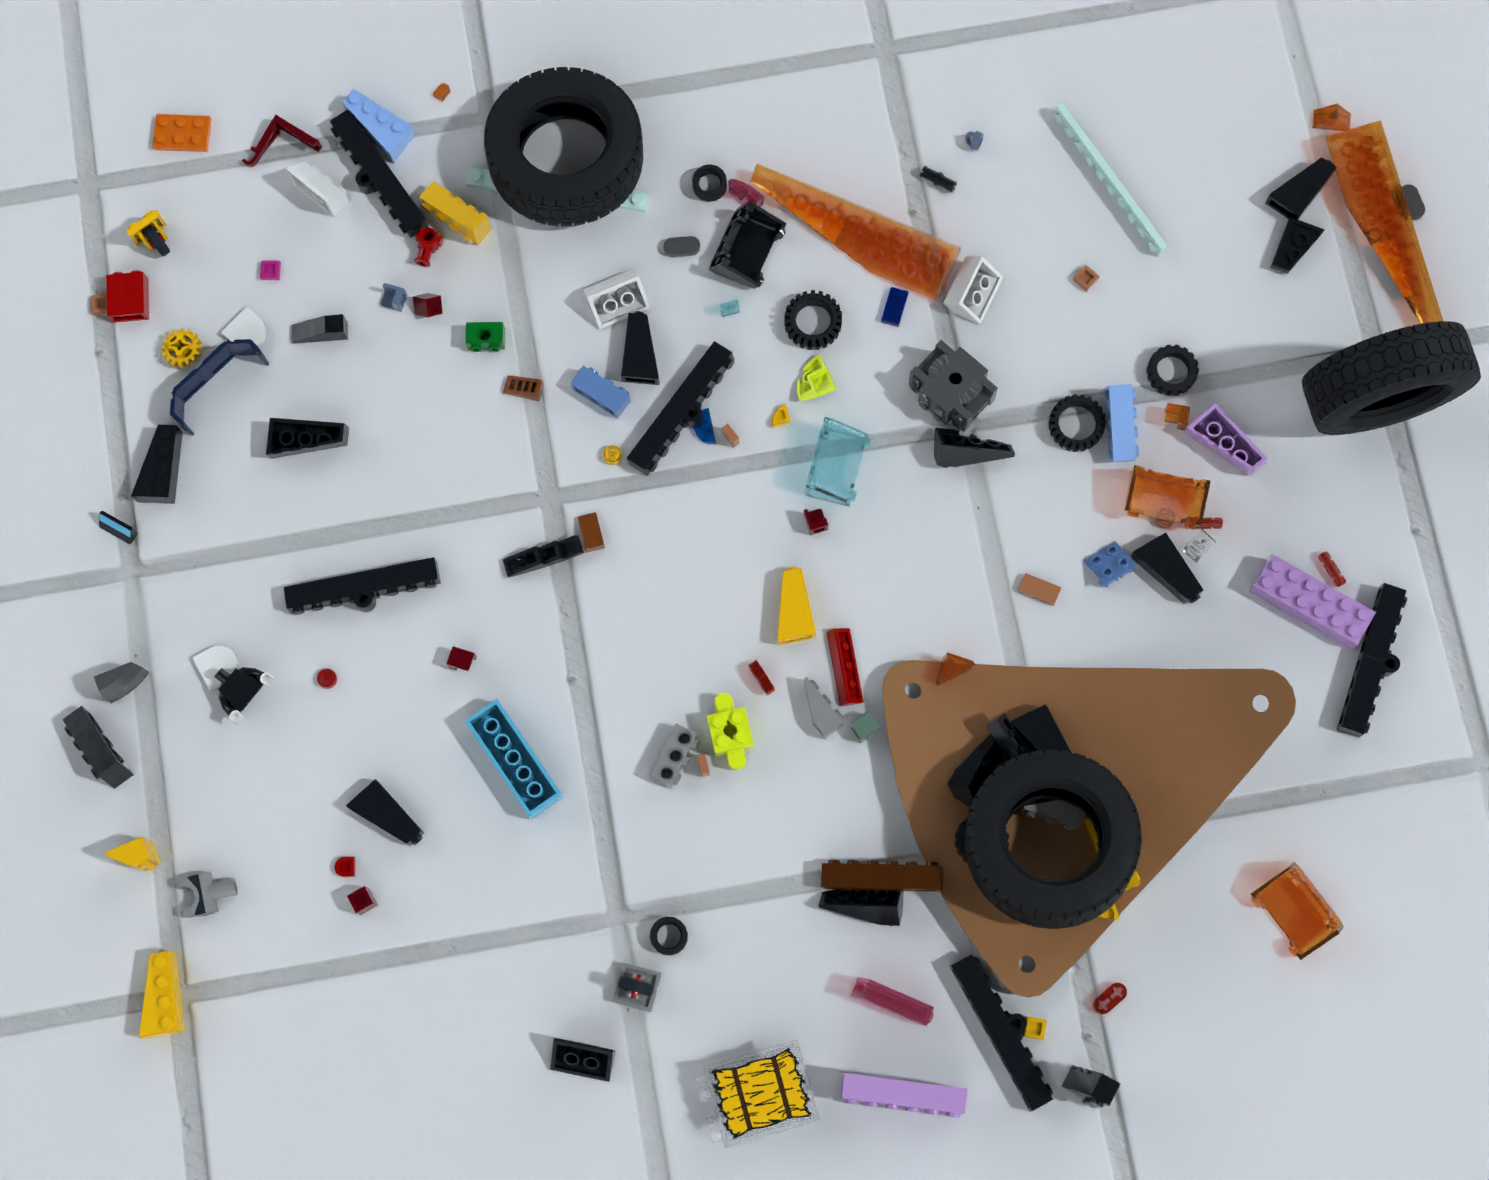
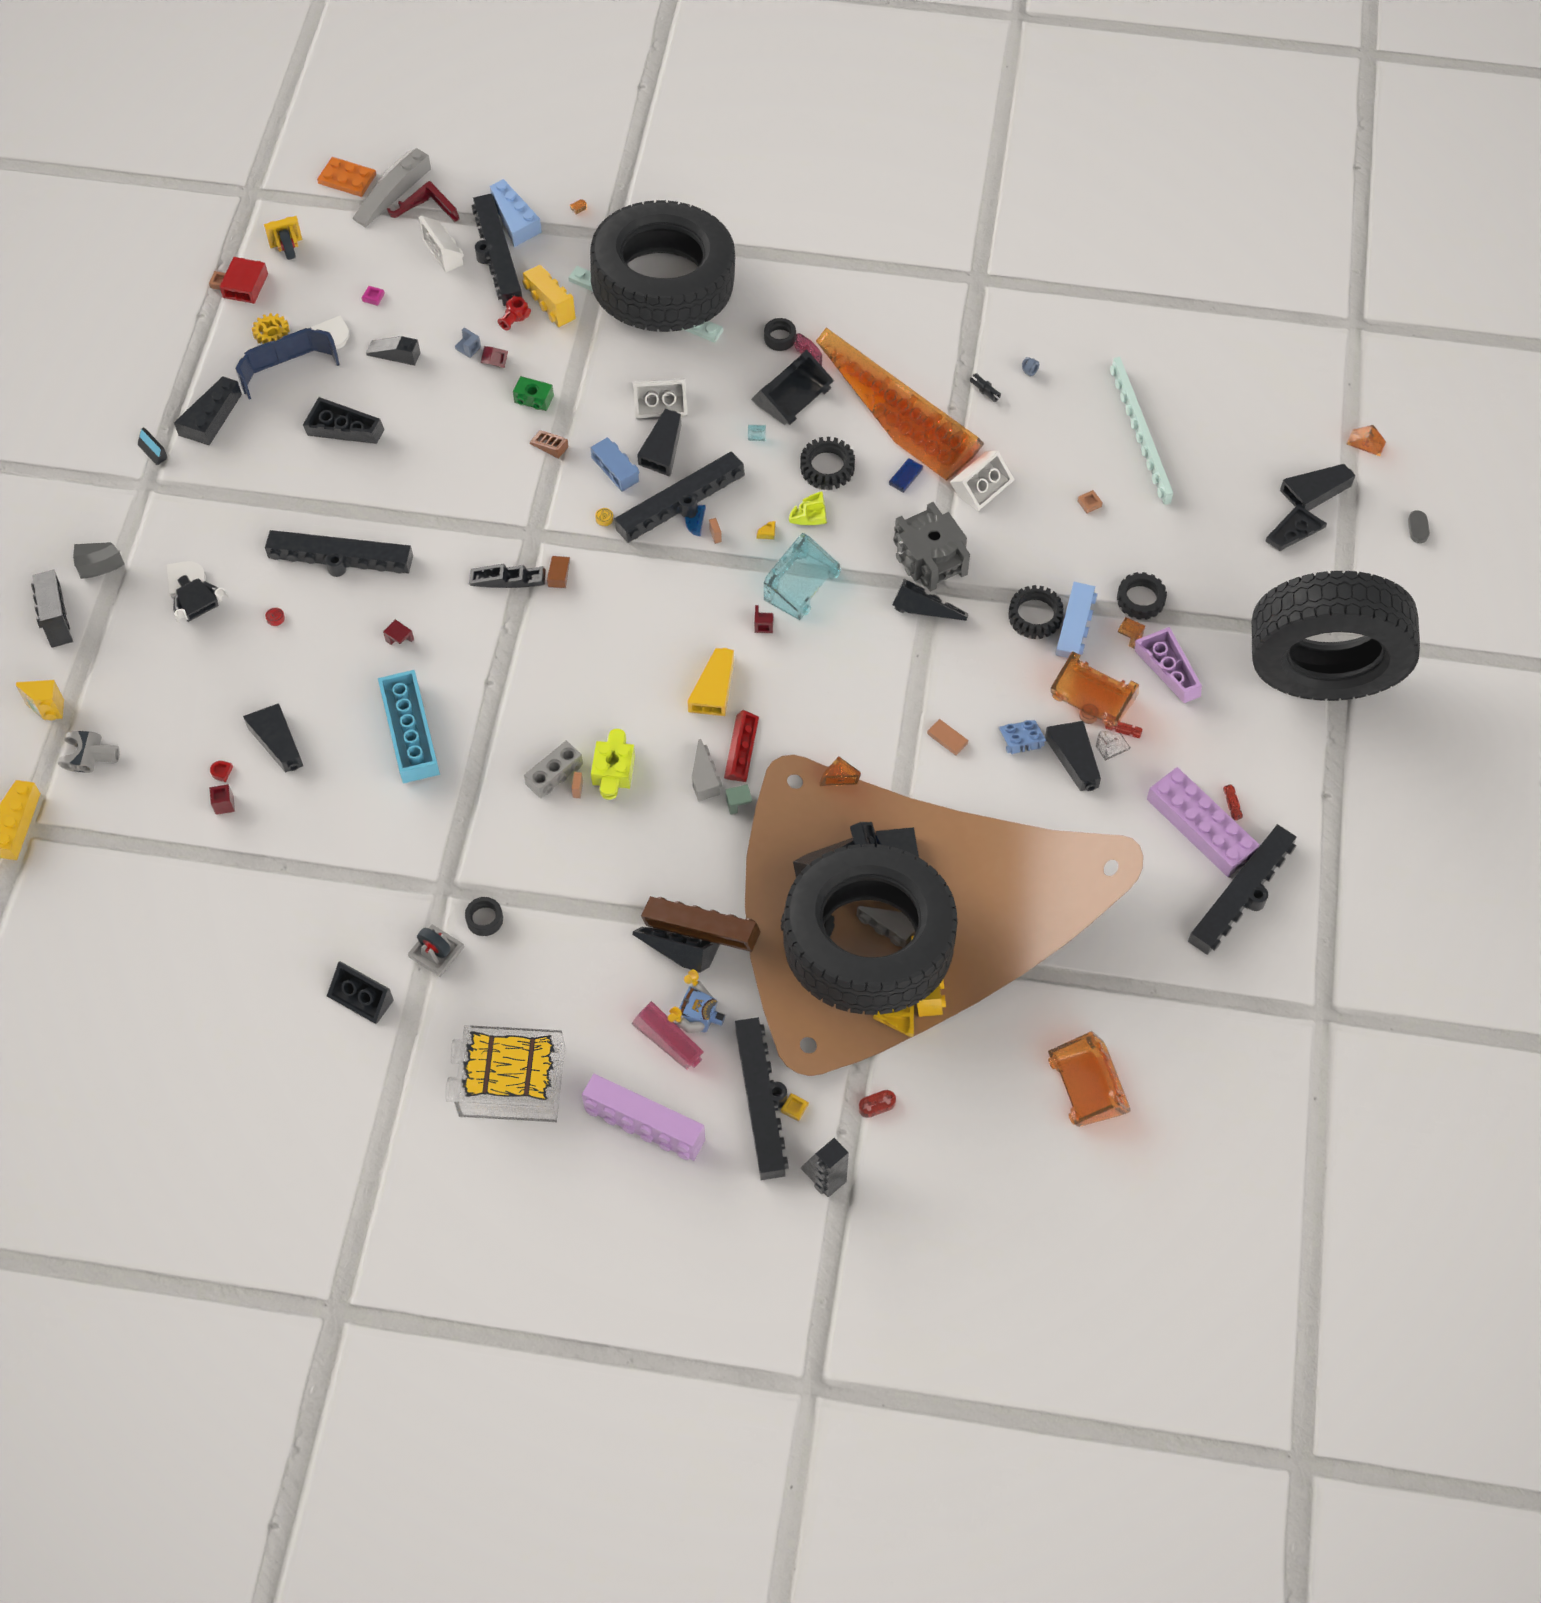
camera: 15 degrees right, 15 degrees down
(234, 128) = (393, 184): none -> light grey wedge
(681, 246) = (735, 376): dark grey tile -> none
(761, 677) = (660, 730): clear red beam -> none
(909, 963) = (697, 1007): none -> torso
(1381, 211) = (1384, 510): clear orange wedge -> none

